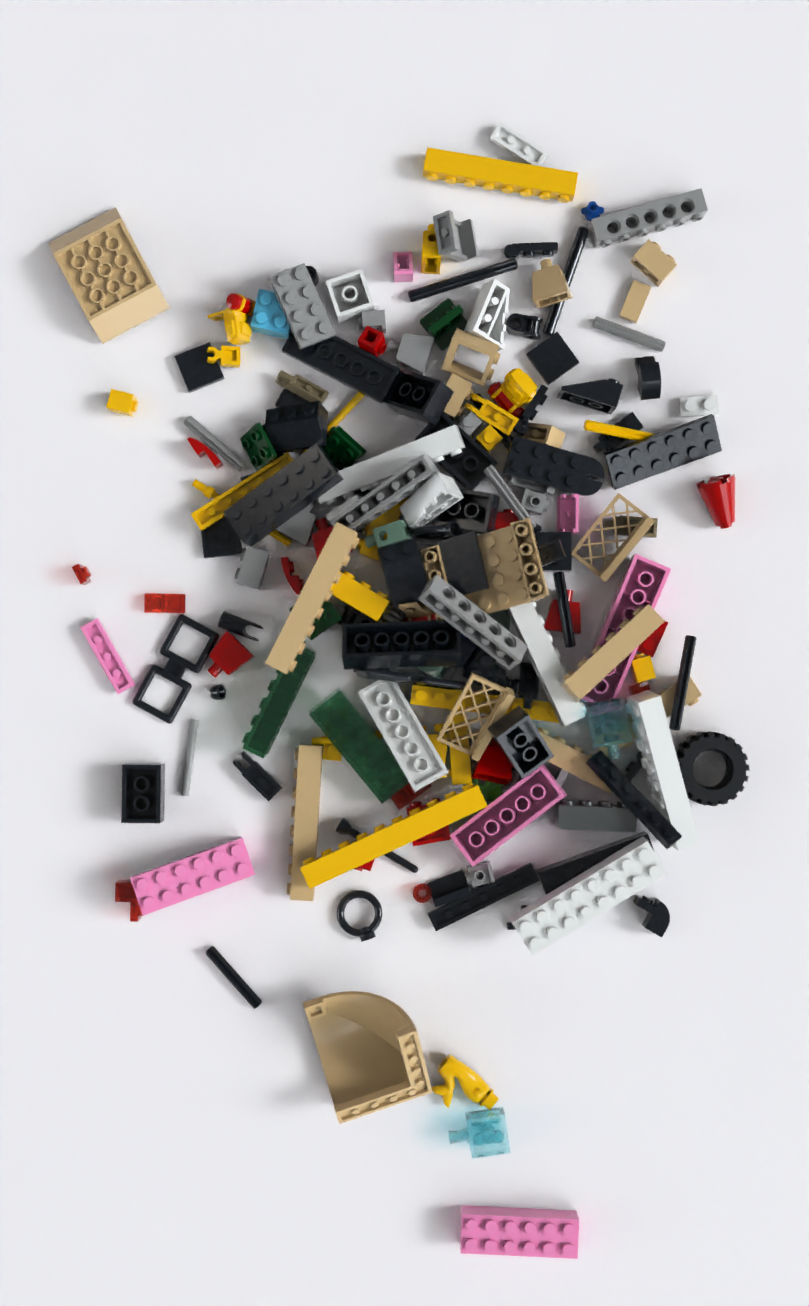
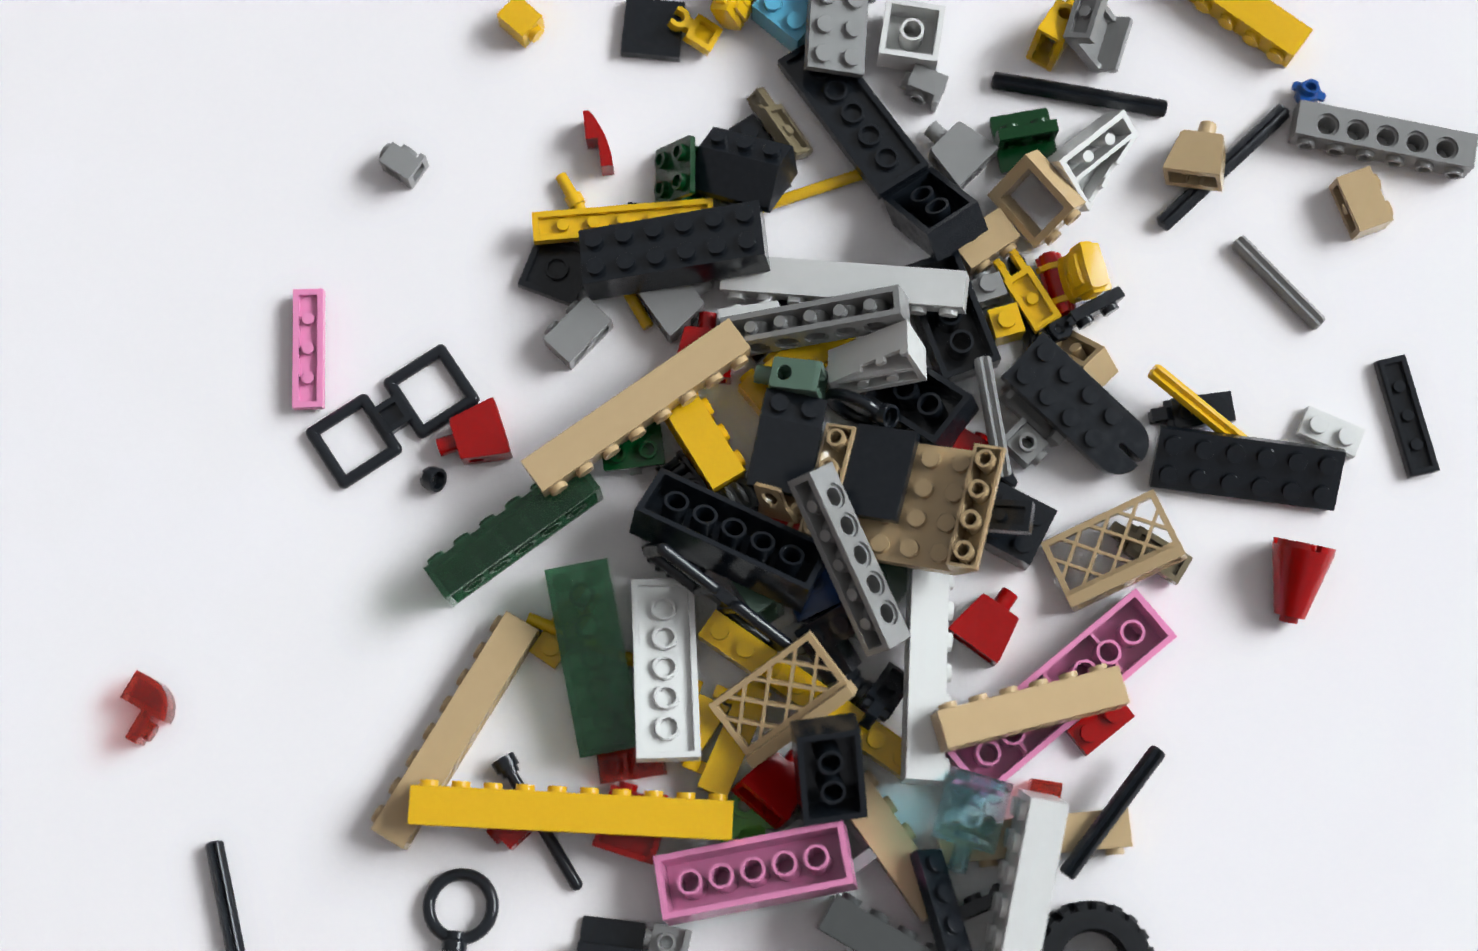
camera: 30 degrees right, 10 degrees down
(82, 574) = (337, 219): clear red plate -> none
(100, 522) = (403, 163): none -> light grey brick
(143, 792) = (248, 563): black brick -> none
(164, 603) = (428, 317): clear red slope -> none
(189, 757) = (342, 550): light grey bar -> none
(192, 876) = (250, 717): bright pink brick -> none
(214, 443) = (618, 139): light grey axle -> none
(236, 625) = (511, 398): black piece -> none
(258, 777) = (424, 630): black hinge -> none
(294, 581) = (626, 358): red slope -> none
(342, 448) = (791, 231): dark green bracket -> none
(372, 341) = (910, 110): red brick -> none
(403, 266) = (1004, 36): bright pink slope -> none
(422, 899) = (558, 923): clear red plate -> none
(525, 326) = (1137, 195): black piece -> none
(529, 250) = (1195, 100): black hinge -> none
(552, 358) = (1152, 261): black tile -> none
(564, 609) = (991, 615): black axle -> none
(568, 513) = (1066, 484): bright pink hinge -> none
(596, 395) = (1185, 336): black slope -> none
(634, 301) = (1308, 243): tan tile -> none
(642, 668) = (1063, 762): yellow brick -> none
(648, 377) = (1276, 354): black brick -> none
(736, 375) = (1406, 416): none -> black tile

